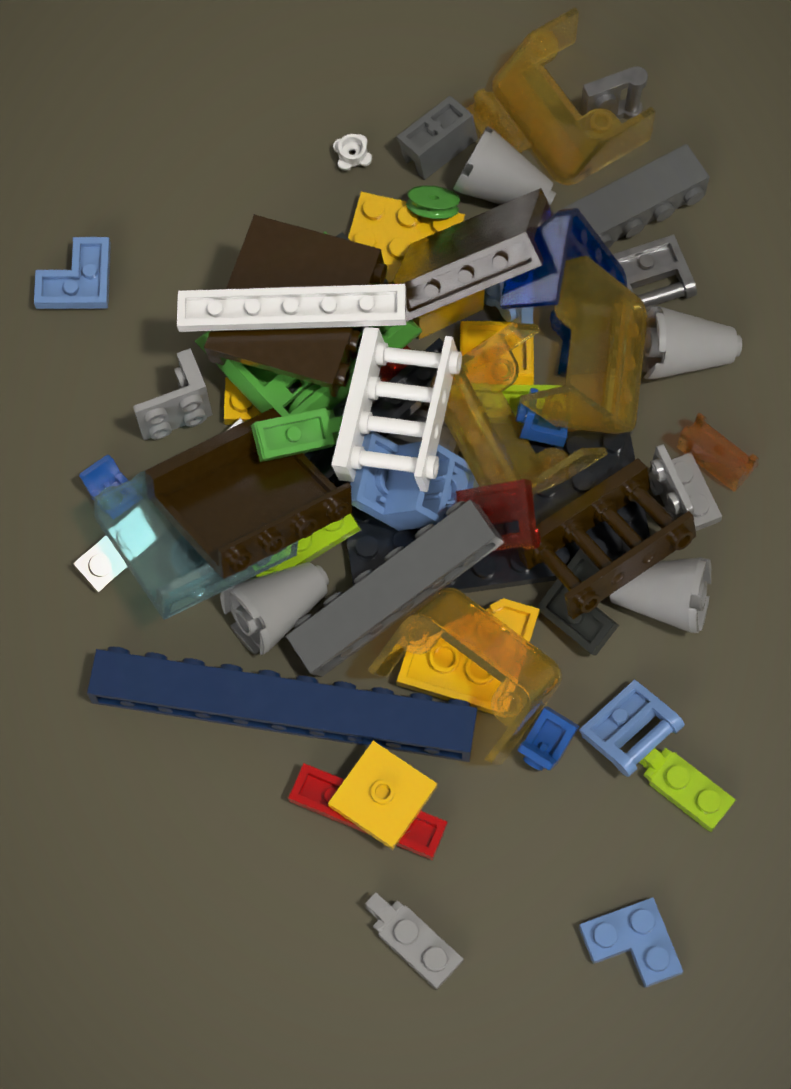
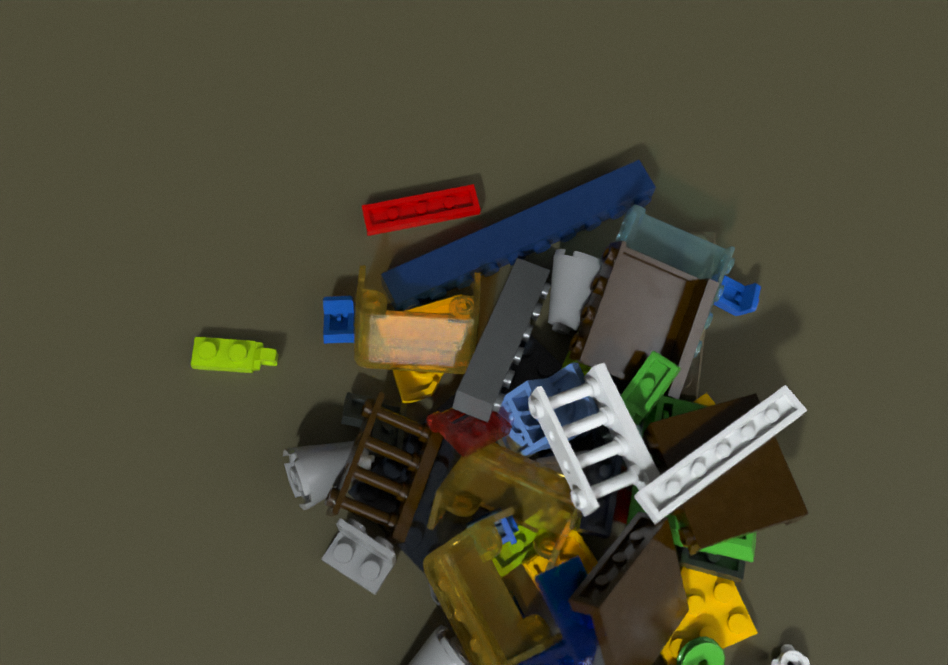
camera: 135 degrees right, 0 degrees up
(81, 287) = (875, 425): medium blue plate -> none
(178, 408) = (736, 382): light grey bracket -> none
(382, 795) = (417, 218): yellow plate -> none
(414, 941) = (341, 160): light grey hinge -> none
(623, 719) = (298, 366): medium blue plate -> none
(636, 930) = (205, 249): medium blue plate -> none
(717, 453) = (354, 608): clear orange hinge -> none

